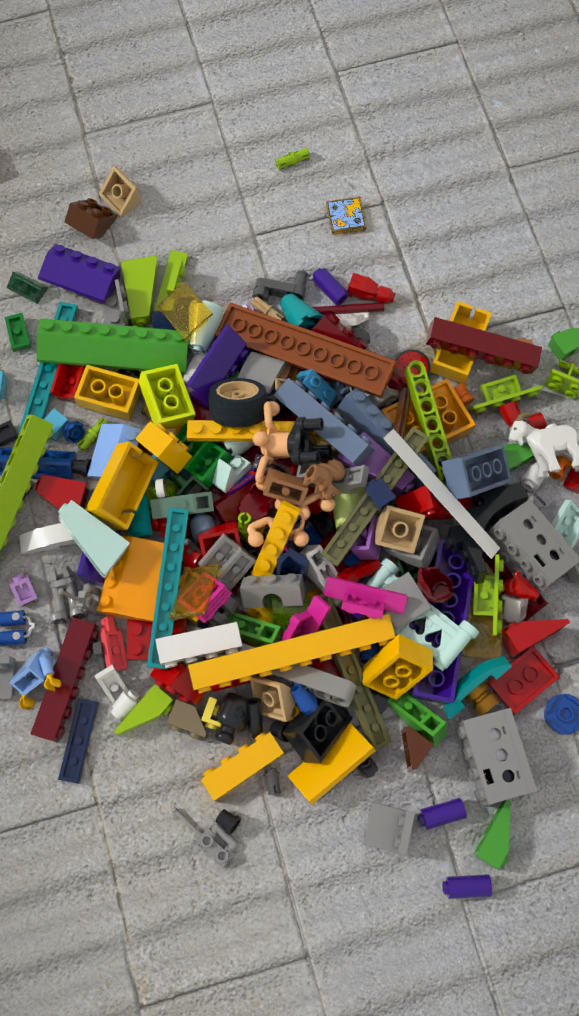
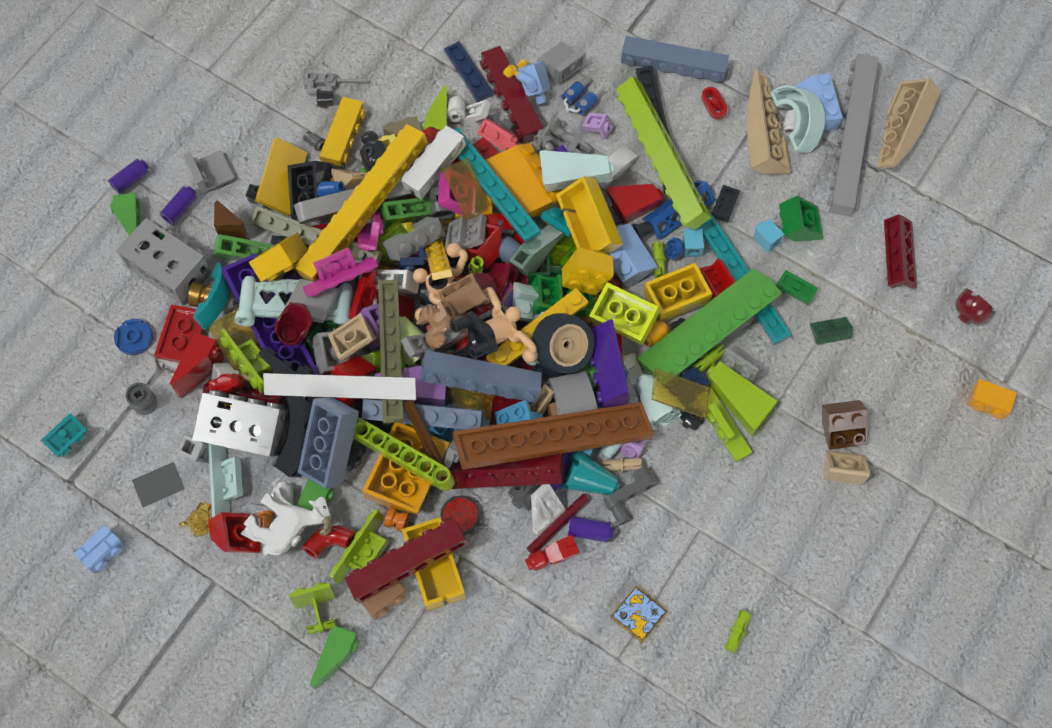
camera: 140 degrees right, 5 degrees down
(79, 273) = (798, 364): dark purple slope -> none
(160, 488) = (562, 245): white tile -> none
(255, 723) = (359, 163): black cylinder -> none
(379, 494) = (384, 343): dark blue brick -> none

